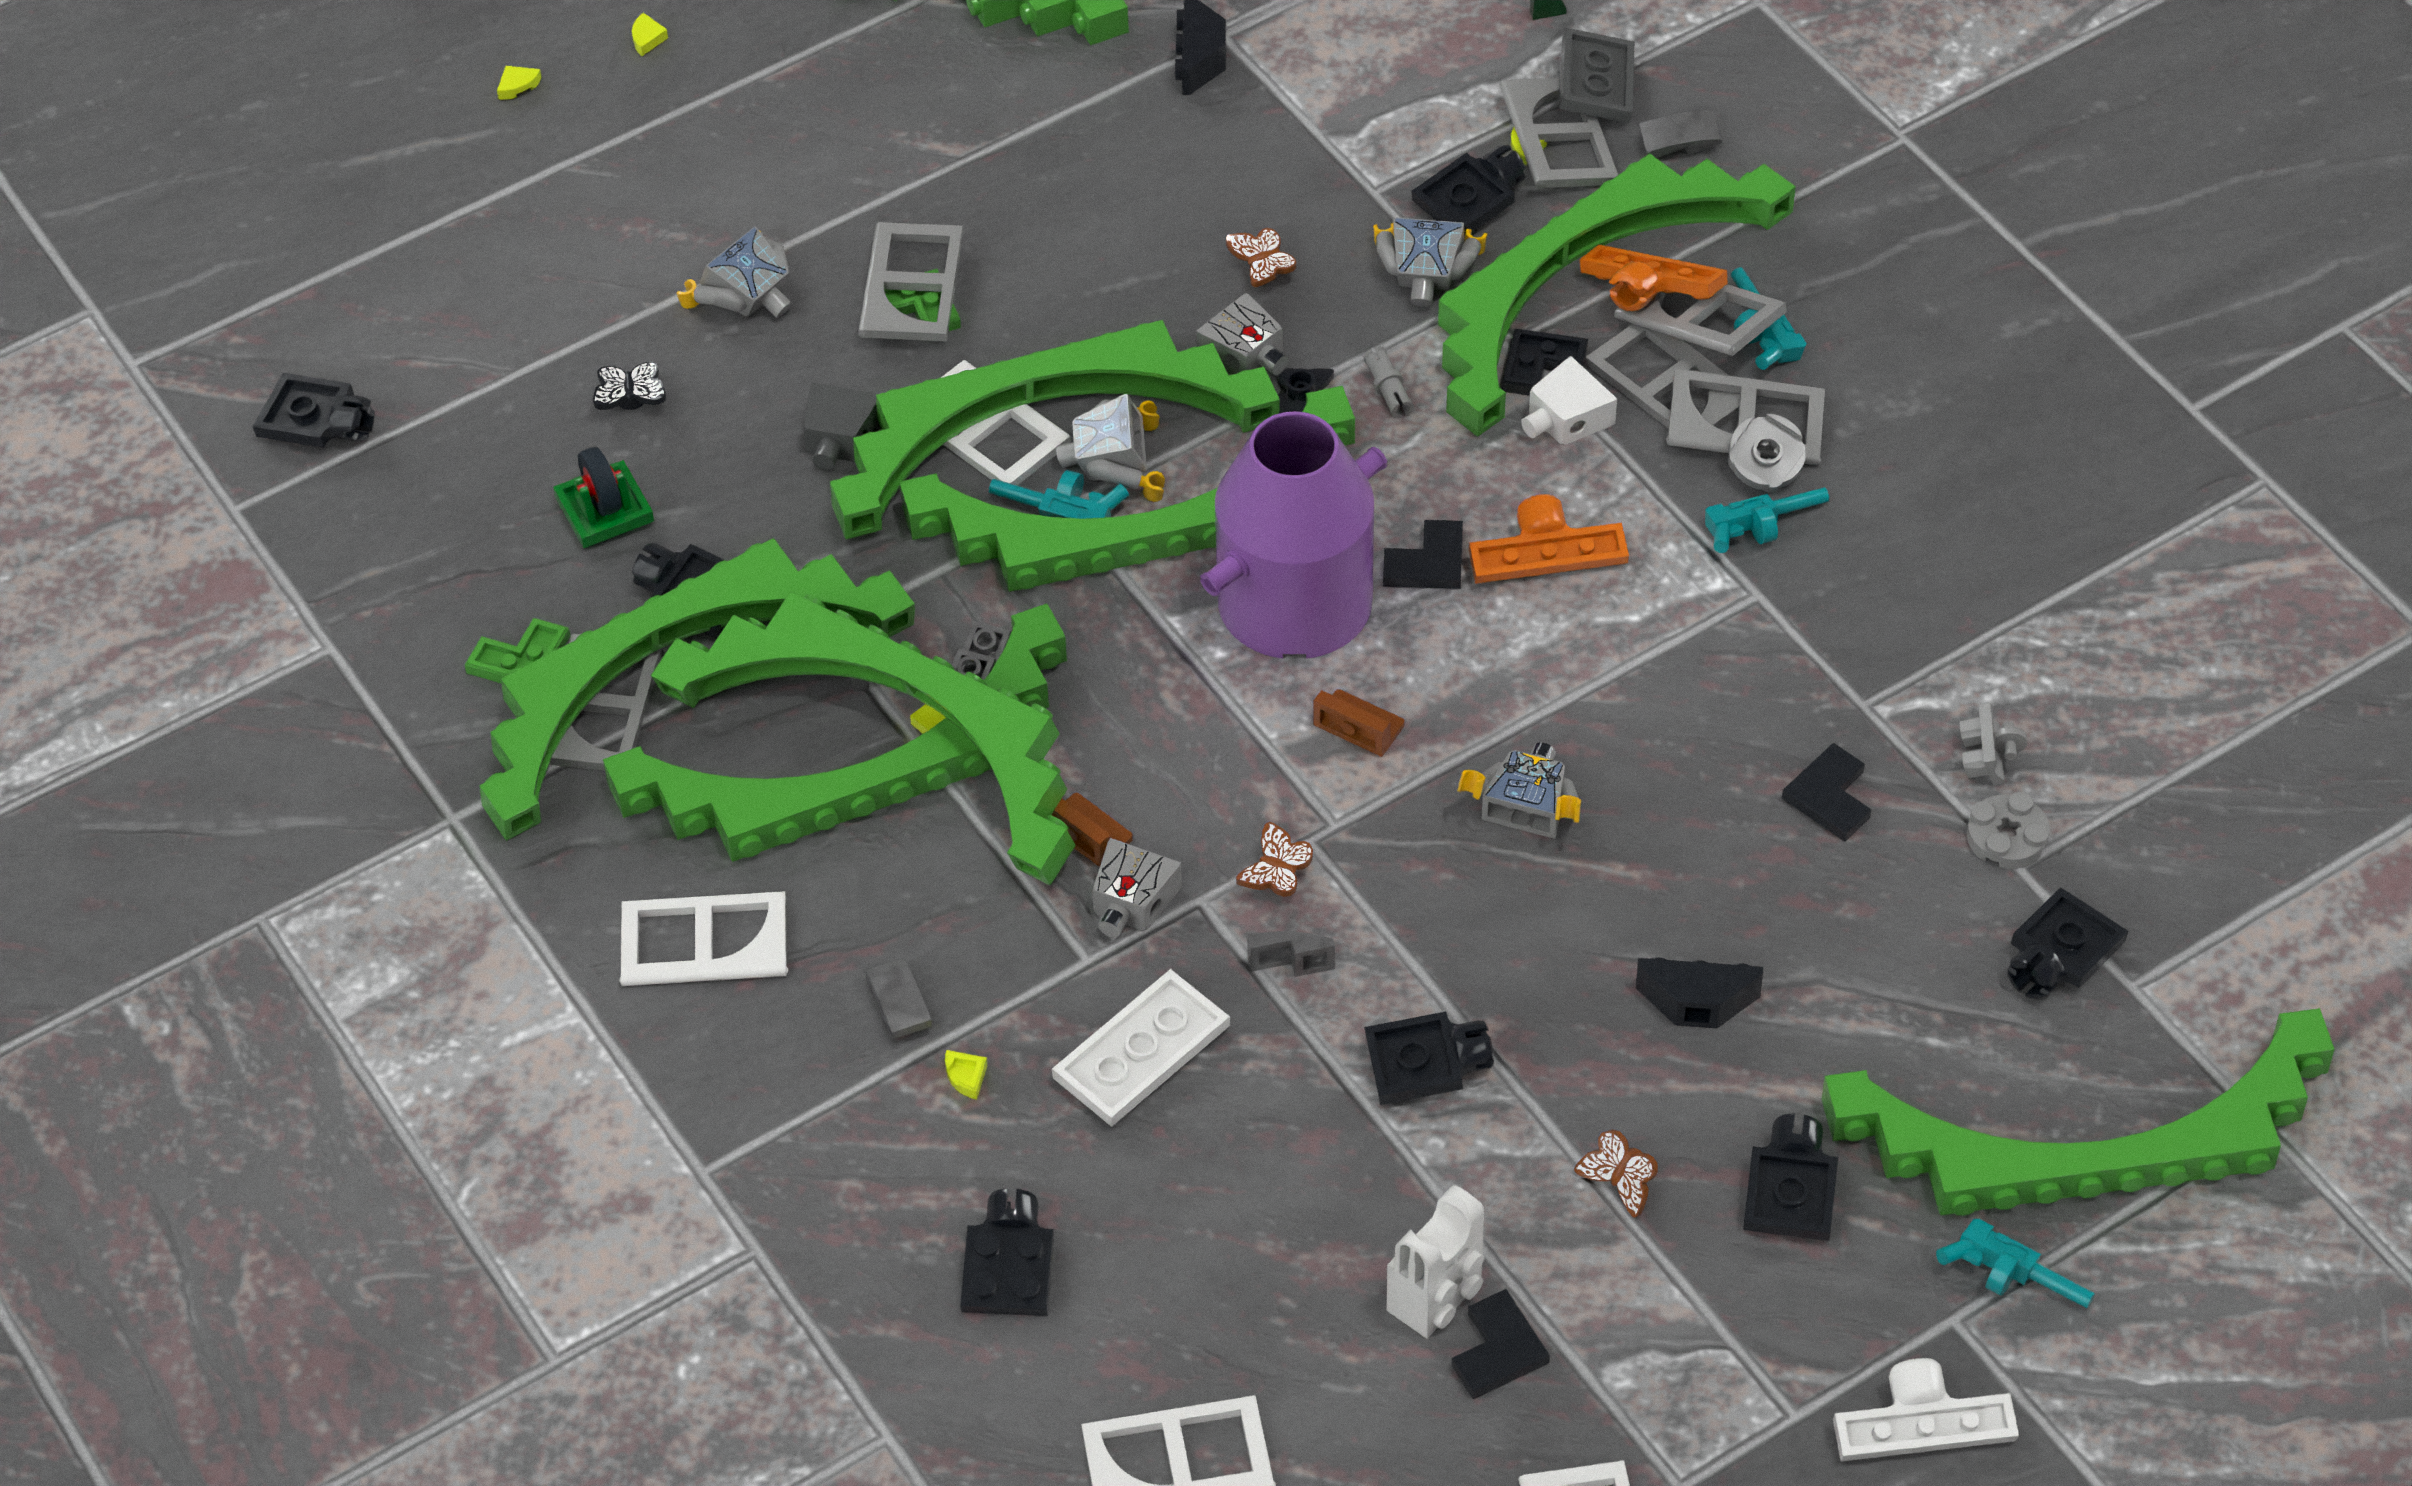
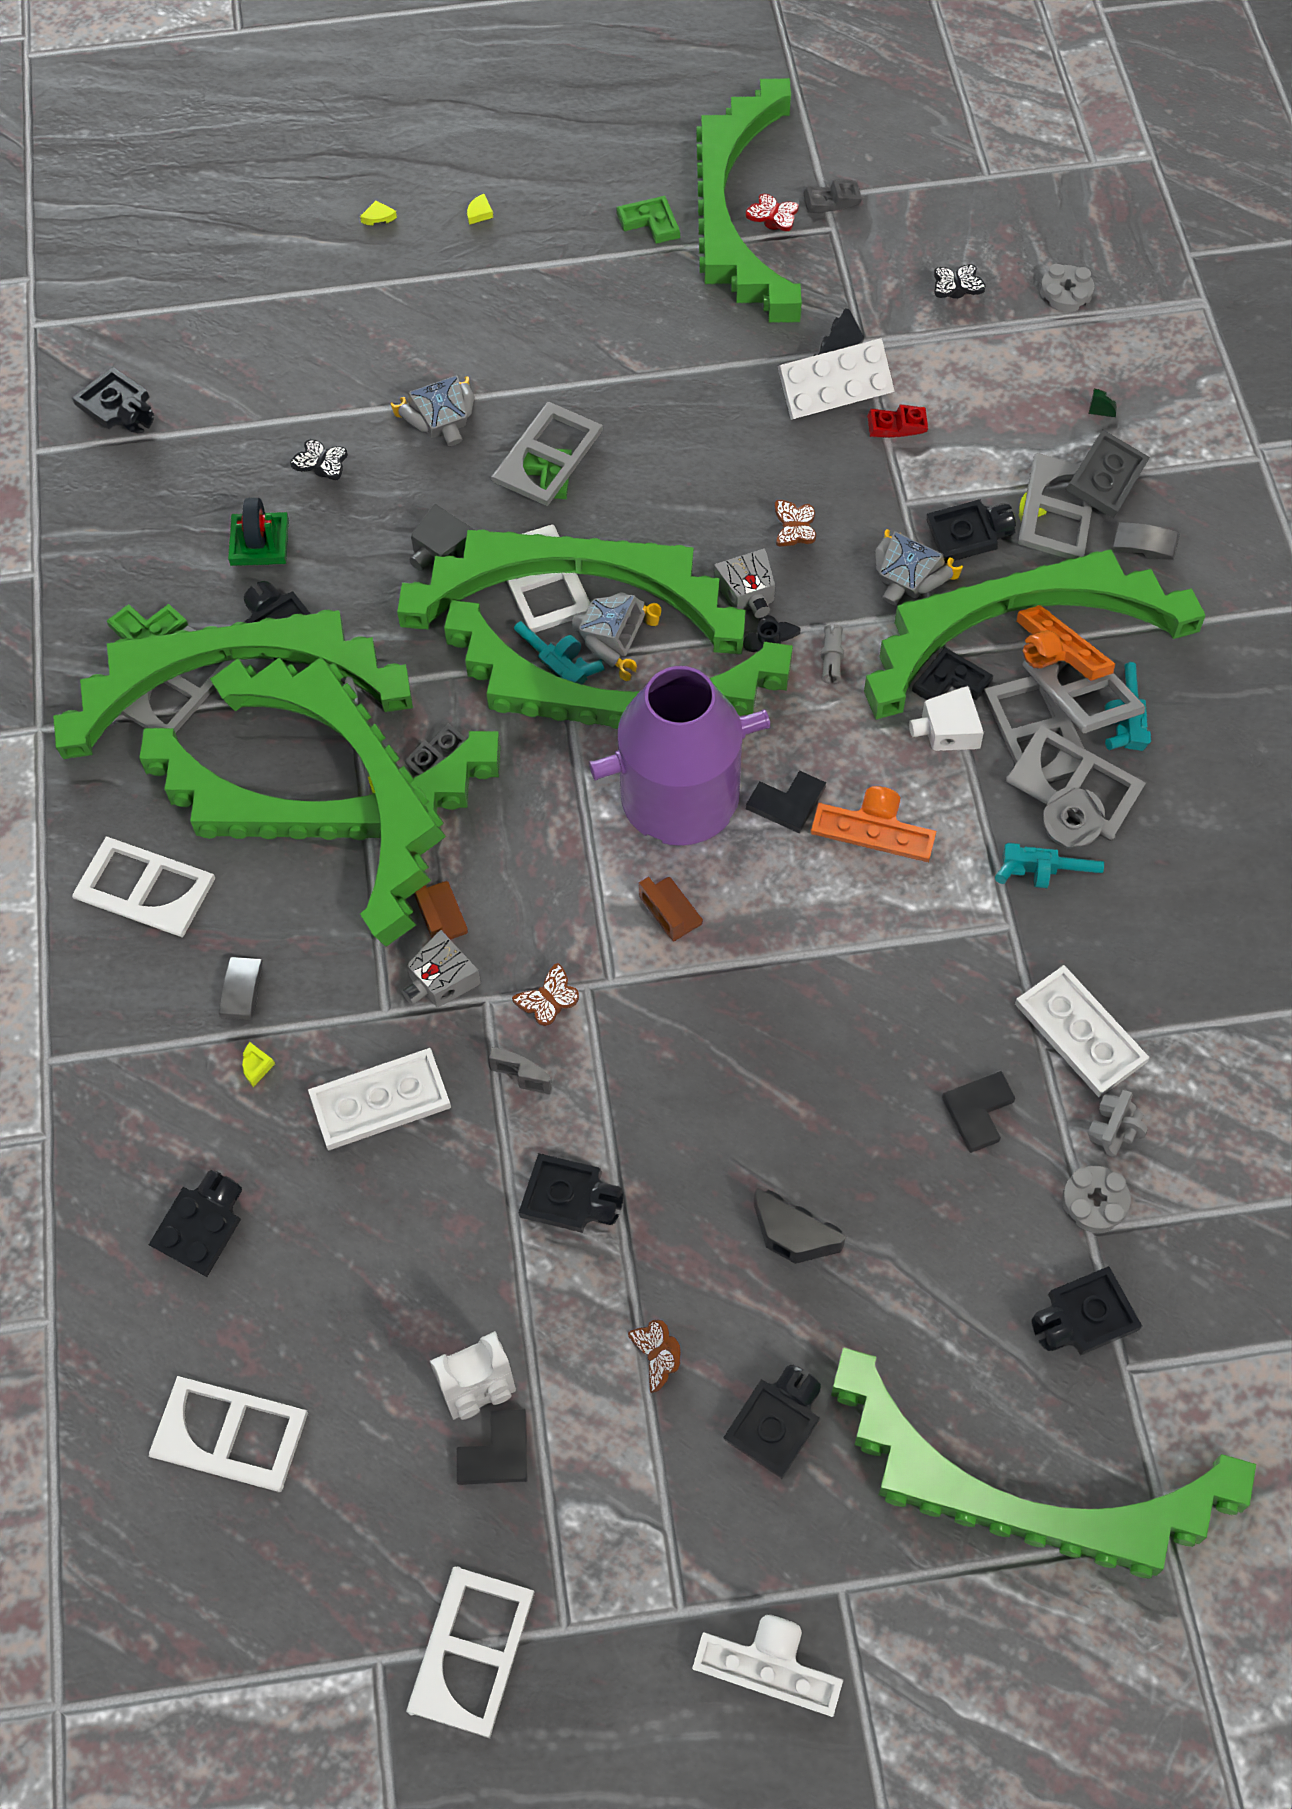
camera: 25 degrees right, 10 degrees up
(1217, 78) = (836, 378): none -> white plate
(1321, 102) = (900, 423): none -> red slope
(1525, 791) = (753, 1014): torso -> none
(1897, 668) = (1081, 1031): none -> white plate
(2008, 1262) = (907, 1562): teal piece -> none

